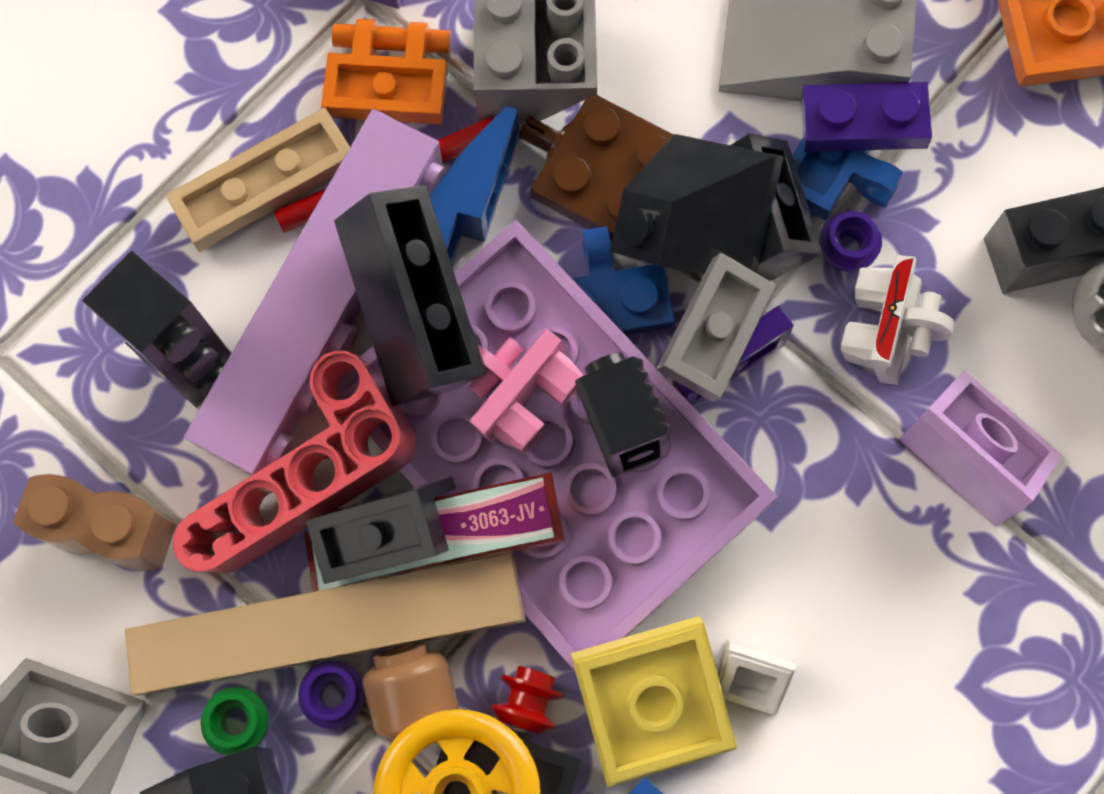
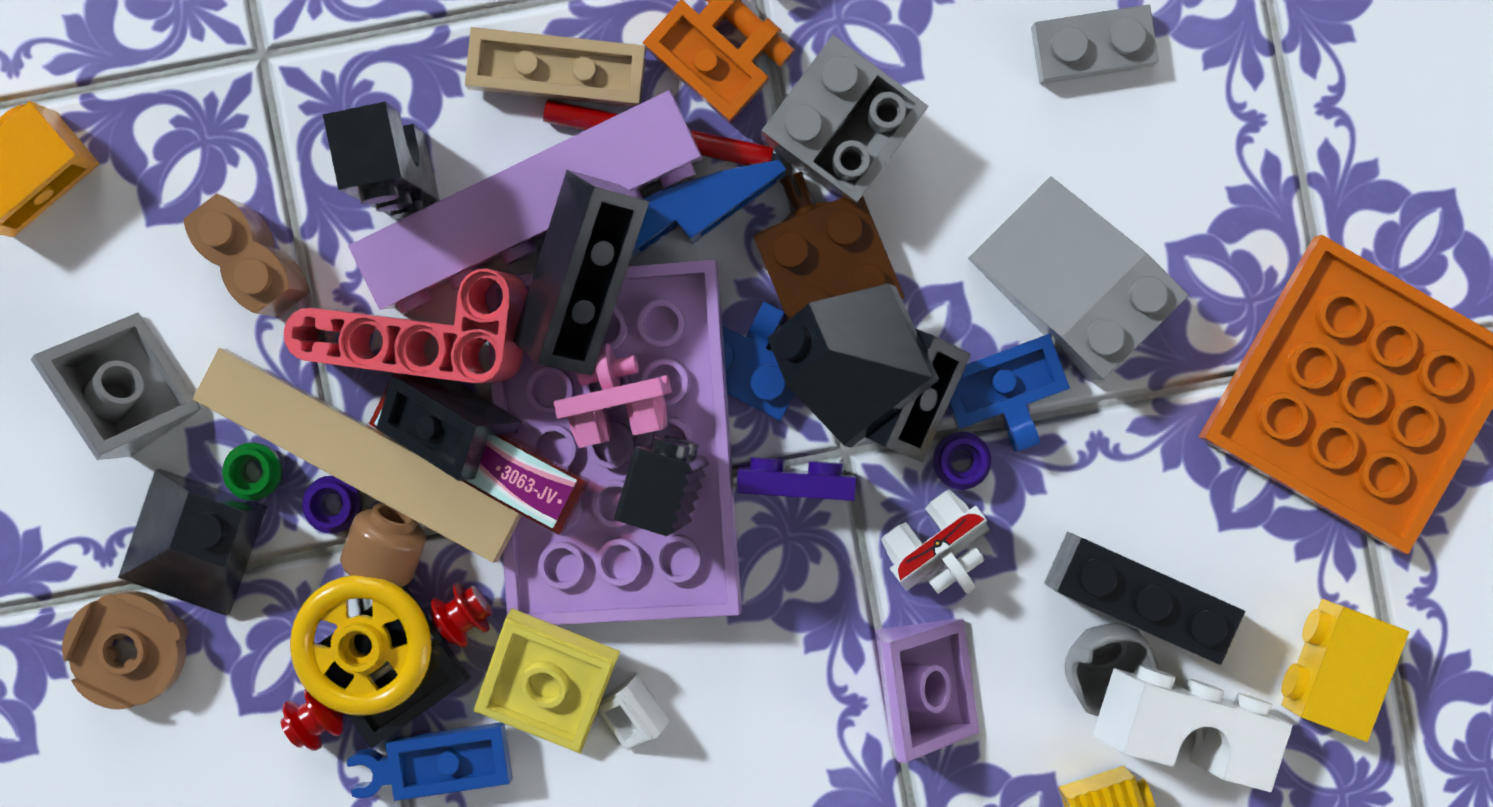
camera: 35 degrees right, 15 degrees up
(716, 327) = (789, 465): light grey plate -> none
(866, 116) = (1048, 379): dark purple plate -> none

